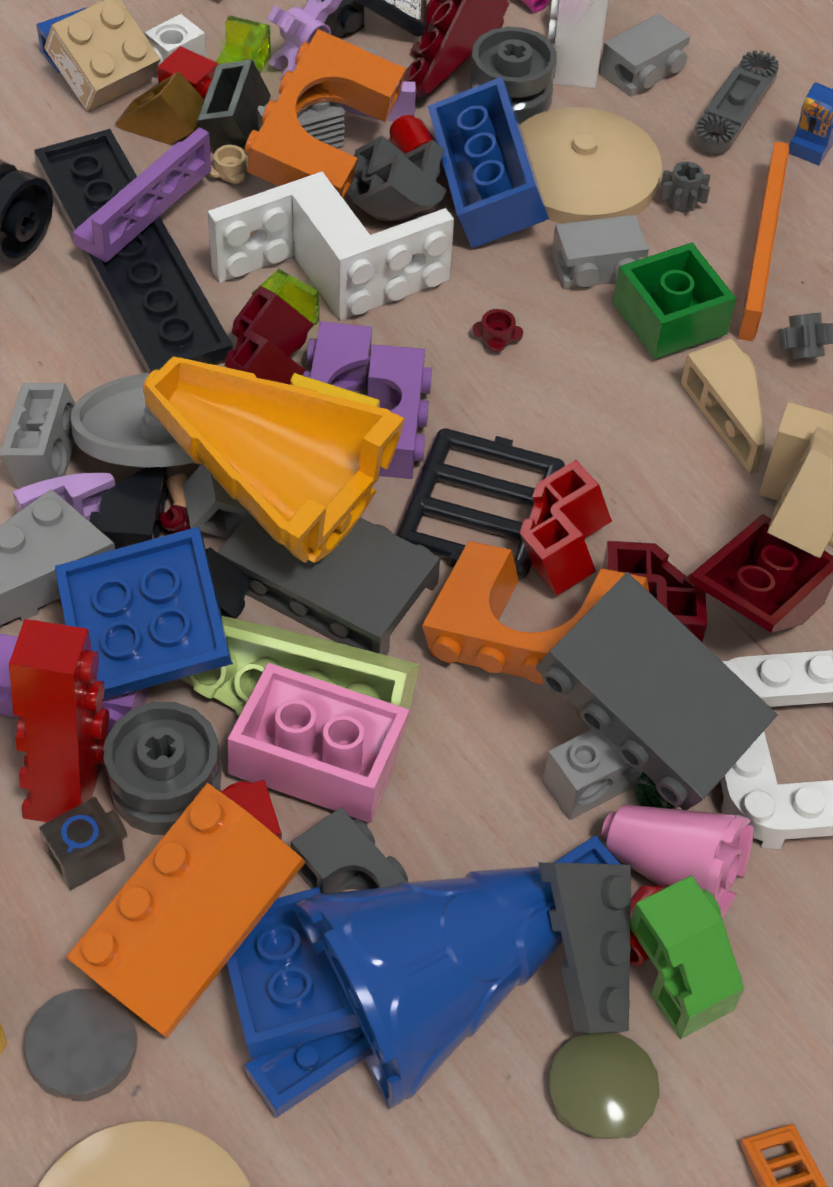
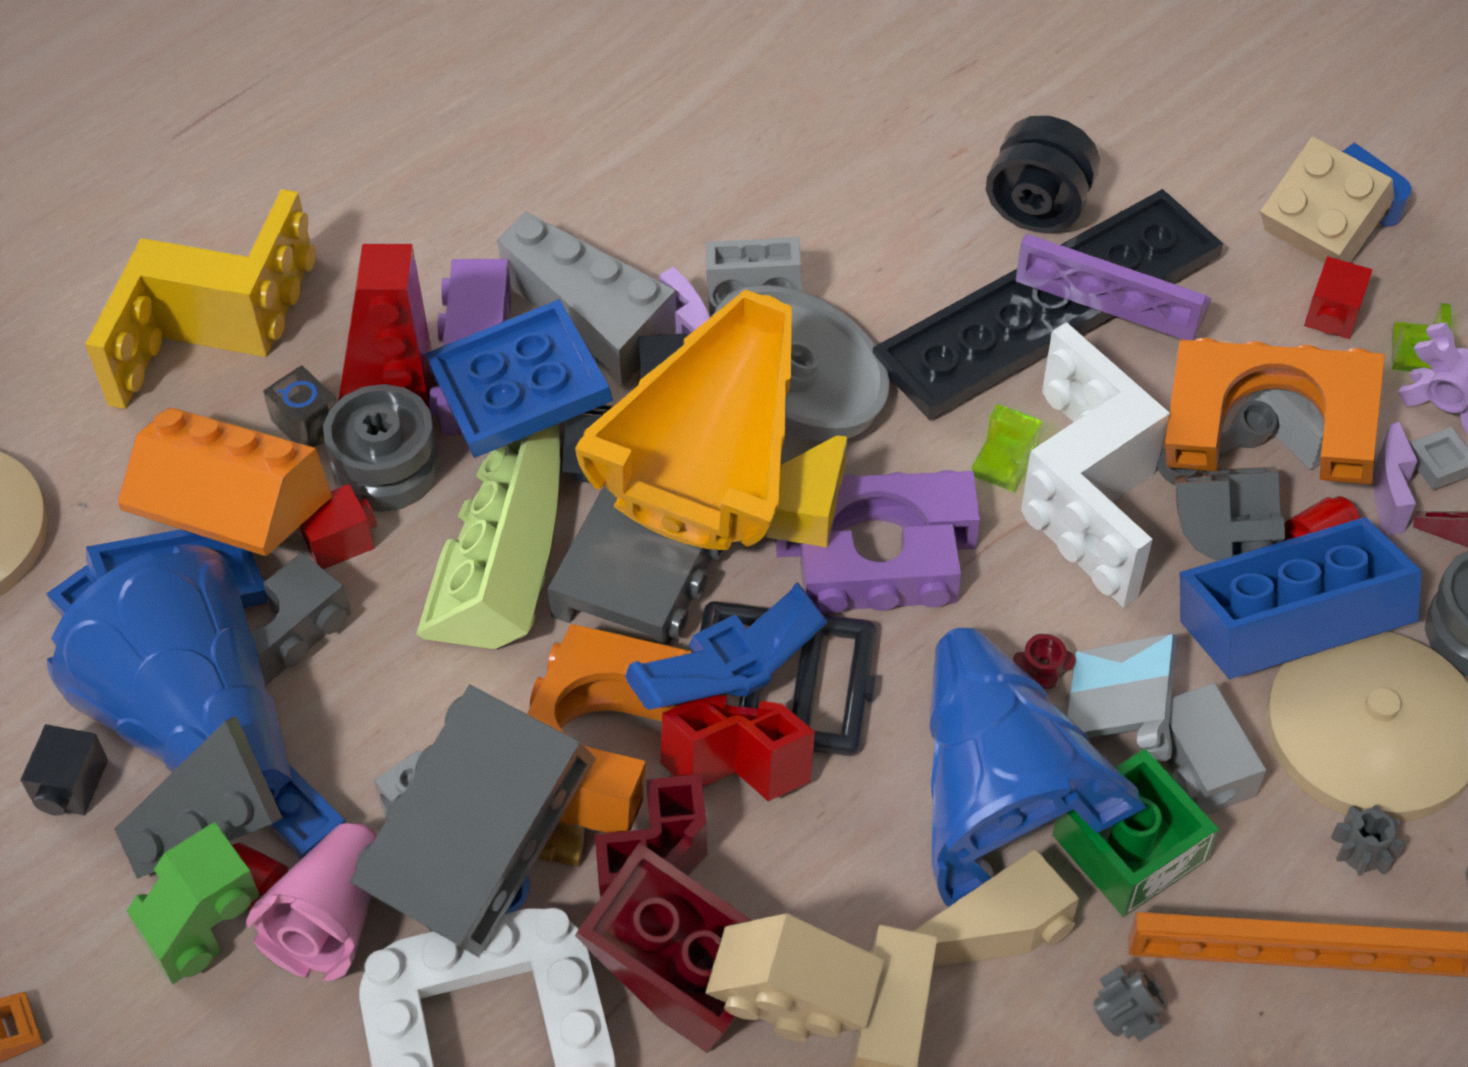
camera: 85 degrees right, 0 degrees up
(80, 1044) = (103, 450): flat silver tile -> none
(164, 111) = (1272, 290): pearl gold slope -> none
(175, 33) = (1395, 274): white brick -> none
(232, 103) = (1293, 325): pearl dark grey brick -> none
(267, 336) = (944, 432): dark red brick -> none
(317, 741) = (417, 557): bright pink slope -> none
(481, 508) = (729, 655): none -> blue plate
(504, 1093) = (64, 770): none -> black brick
(546, 283) = (1126, 691): none -> light grey flag
(603, 1085) = (78, 864): olive dish -> none
(614, 357) = (1005, 762): none -> blue cone

